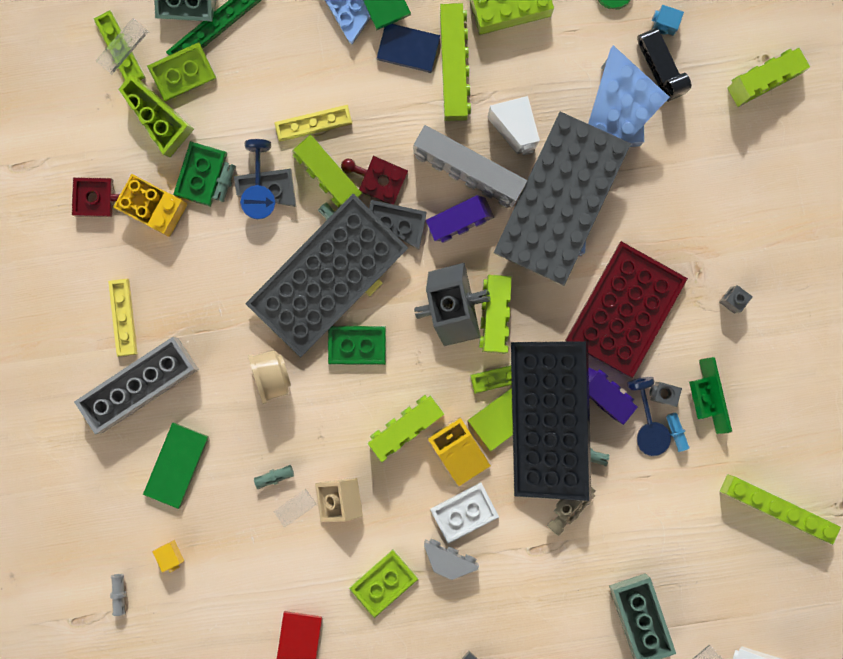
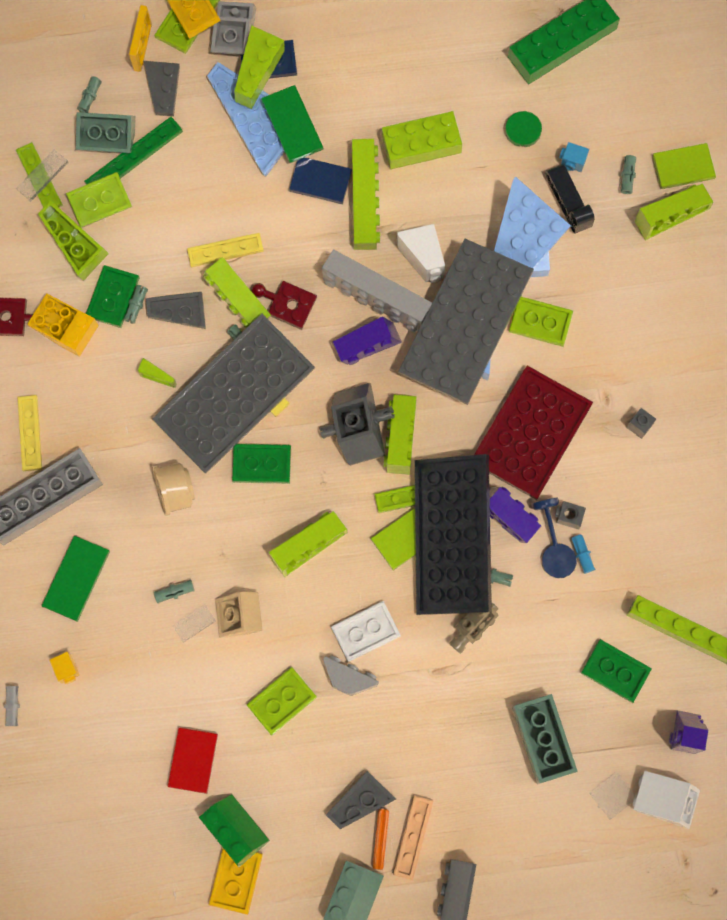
camera: 10 degrees right, 10 degrees down
(242, 253) = (152, 372): none -> lime slope
(257, 200) = (168, 321): piece -> none
(402, 221) = (311, 343): dark grey wing -> none
(459, 451) = (361, 568): yellow slope -> none
(636, 195) = (541, 321): none -> lime tile
(709, 396) = (614, 518): green bracket -> none
(710, 547) = (616, 671): none -> green tile
(721, 38) = (628, 174): none -> sand green pin
(778, 28) = (684, 166): none -> lime tile
(784, 614) = (689, 733): none -> dark purple wedge

